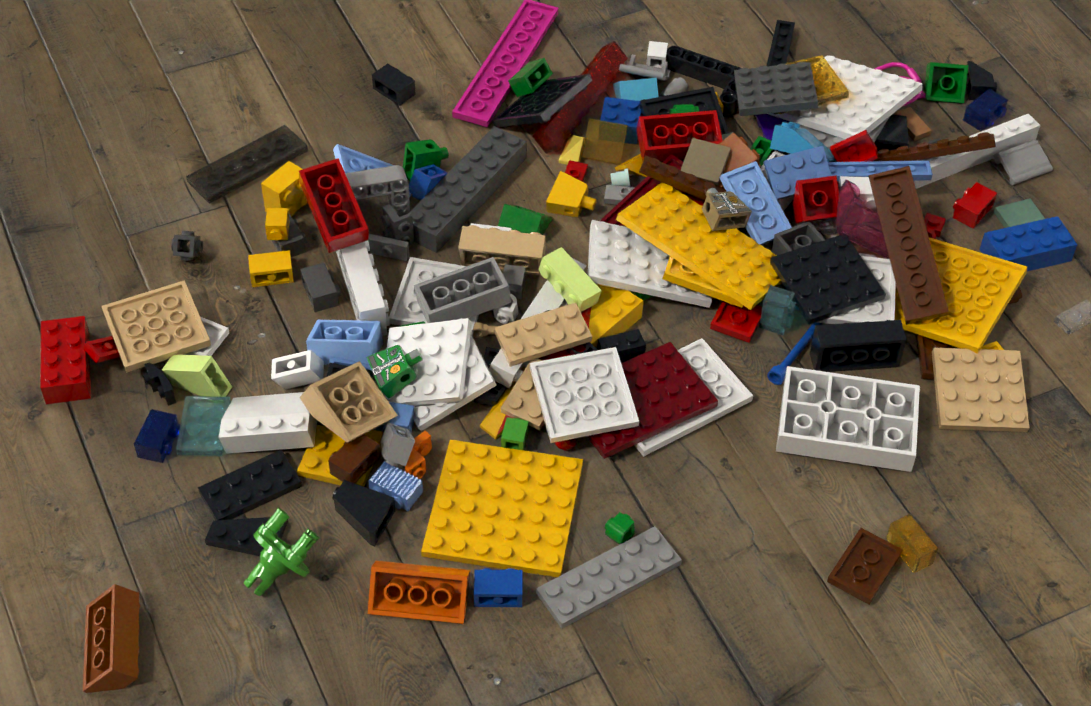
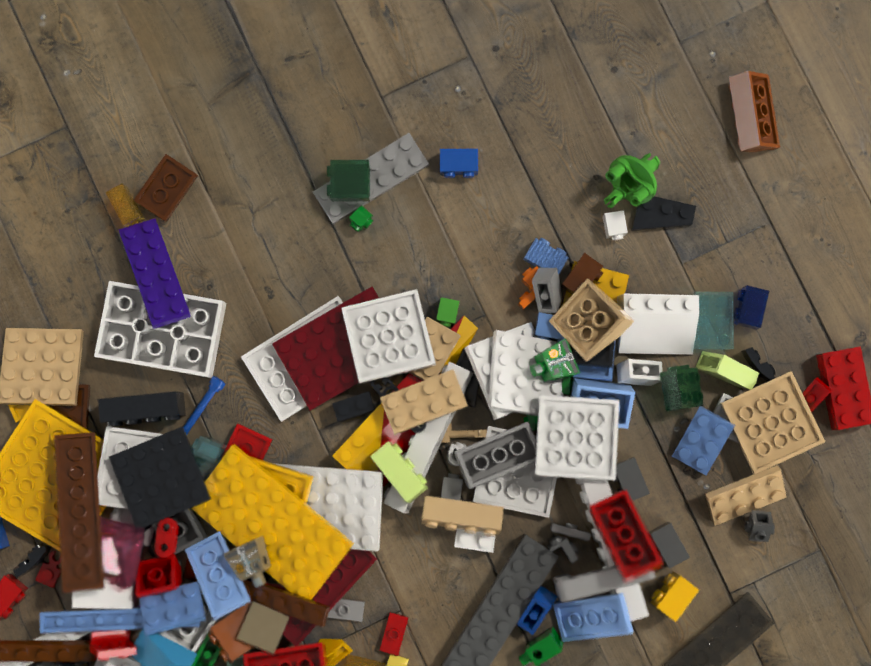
camera: 175 degrees left, 35 degrees up
(204, 266) = (746, 495): none -> tan plate
(234, 314) = (703, 440): none -> medium blue plate
(250, 486) = (666, 260): black plate -> none
(252, 354) = (681, 387): none -> clear green brick
(270, 268) = (677, 502): yellow brick -> none
(277, 224) = (677, 542): yellow brick -> none
(308, 517) = (615, 225): none -> white brick
(364, 509) = (570, 234): black slope -> none
(375, 296) = (577, 437): none -> white plate
(418, 591) = (521, 159): orange slope -> none
(503, 508) = (456, 243): yellow plate -> none
(524, 219) = (441, 568): green slope -> none
(569, 196) = (398, 599): yellow torso -> none
(621, 178) = (347, 628): light aqua piece -> none
(636, 555) = (349, 180): none -> clear green brick
(812, 227) = (166, 537): none -> red plate
(863, 464) = (154, 273): none -> dark purple plate
(954, 228) = (35, 557): none -> black slope

